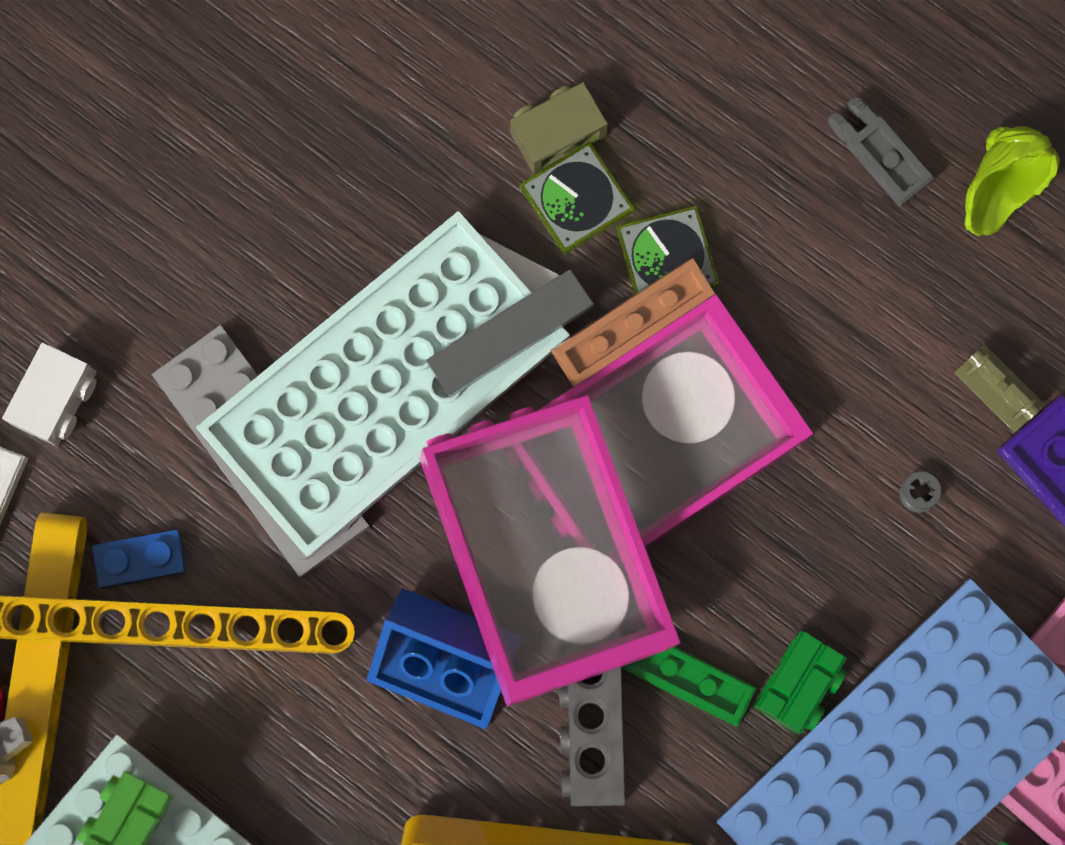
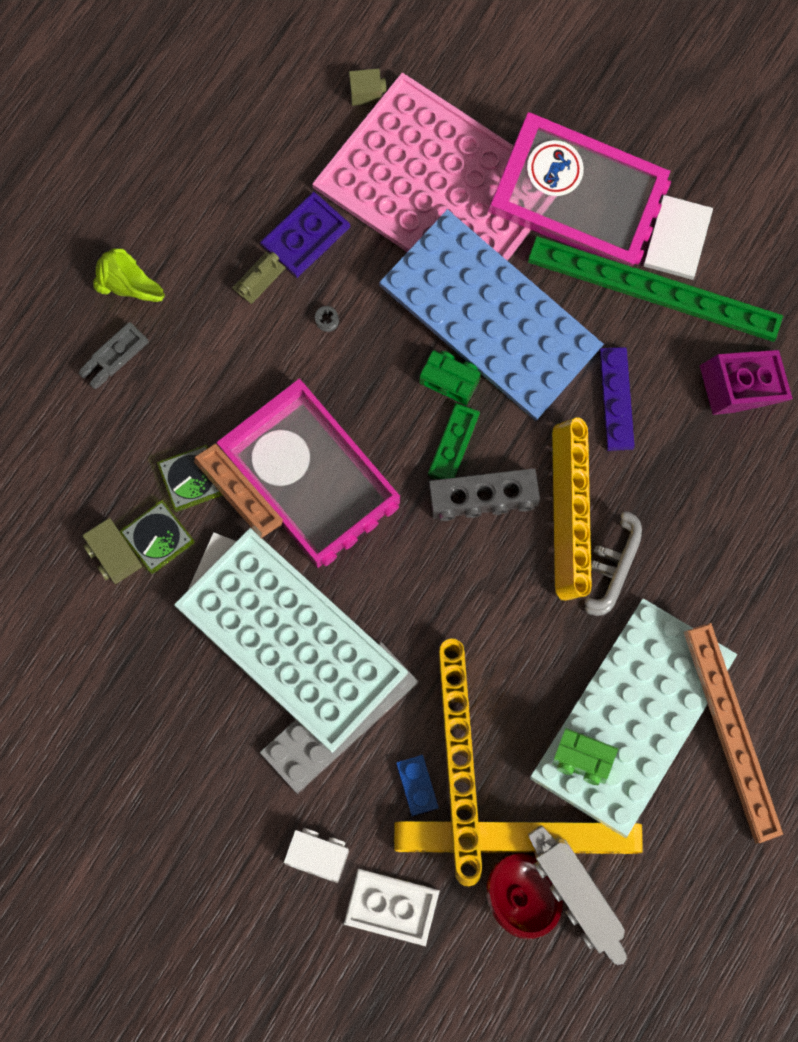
camera: 95 degrees left, 5 degrees down
(436, 659) = (459, 586): blue slope -> none
(509, 333) = (253, 562): dark grey tile -> none
(547, 548) = (387, 523): clear window -> none

